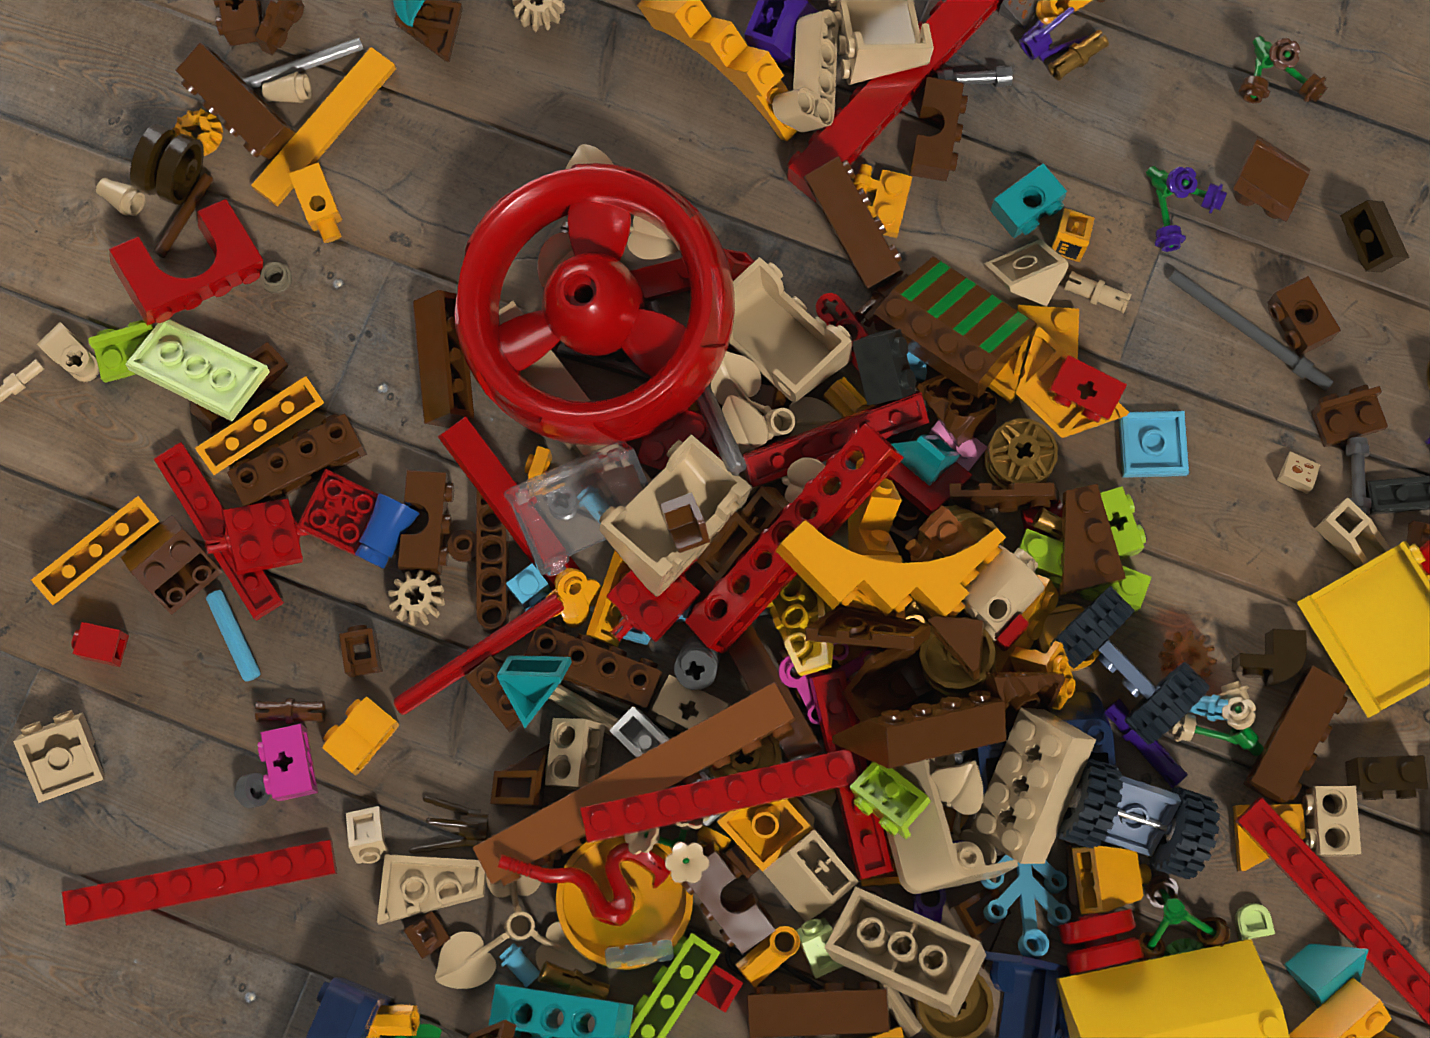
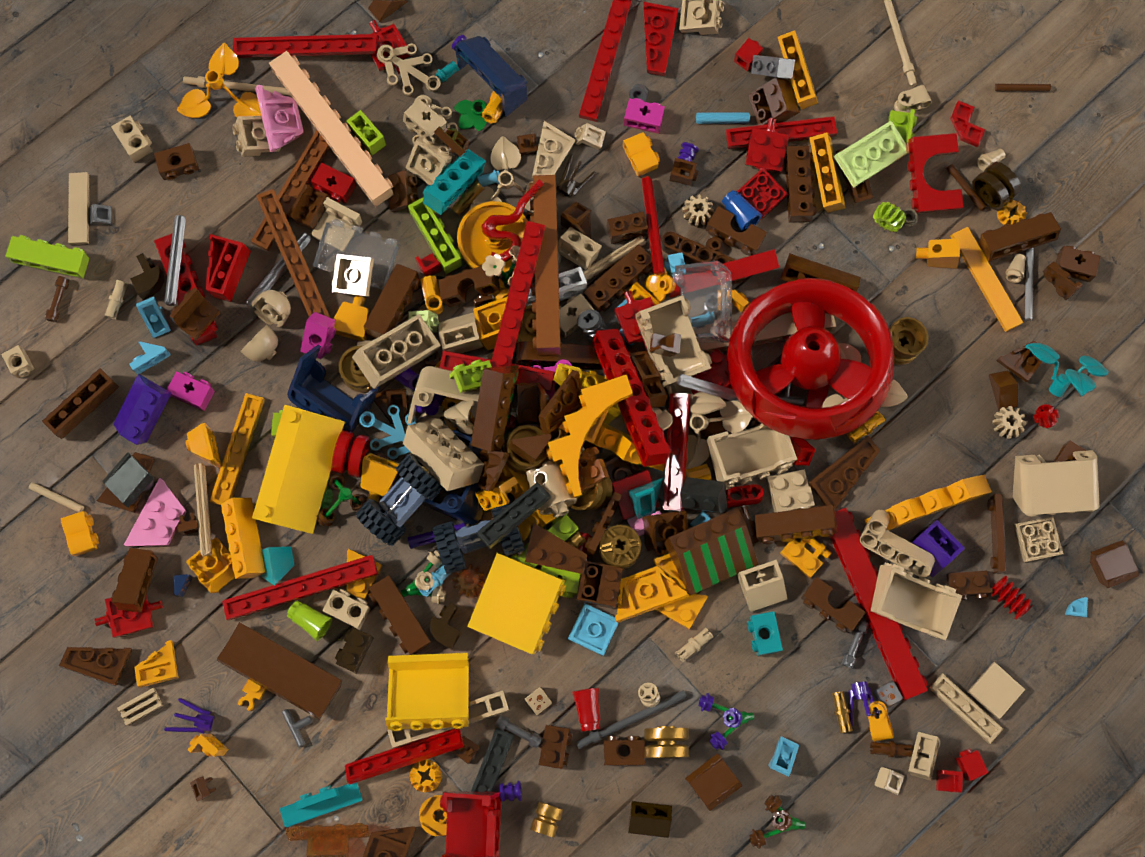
camera: 115 degrees right, 0 degrees up
(86, 253) = (966, 131): none -> red tile
(111, 588) = (773, 66): none -> flat silver brick
(122, 811) = (659, 31): none -> red wing
(289, 711) = (670, 128): reddish brown pin -> none
(292, 300) = (889, 216): none -> lime gear
(325, 661) = (688, 151): none -> dark purple bush
(479, 181) = (908, 339): none -> pearl gold wheel
(488, 32) = (1004, 389): none -> reddish brown slope
(531, 681) = (624, 238): teal slope -> none
(639, 954) = (463, 229): clear light blue axle -> none
(740, 201) = (840, 476): none -> reddish brown wing
(805, 257) = (790, 491): none -> tan plate
(960, 235) = (762, 585): none -> tan slope
(1012, 633) = (524, 481): red tile -> none
(1030, 271) = (723, 610): tan slope -> none
(1073, 235) = (735, 649): light orange slope -> none
(1080, 617) = (513, 515): none -> pearl dark grey tile
(1091, 457) = (600, 584): none -> reddish brown slope
(1105, 388) = (636, 609): red brick -> none
(1187, 99) = (784, 756): none -> medium azure slope
(1189, 564) = (517, 604): none -> yellow panel
(1202, 322) = (647, 690): none -> tan wheel
(1253, 921) = (320, 542): yellowish green tile -> none
(1262, 259) = (666, 742): none -> pearl gold wheel
(1271, 395) = (588, 708): none -> red plant
(1381, 871) = (310, 620): none -> lime plant

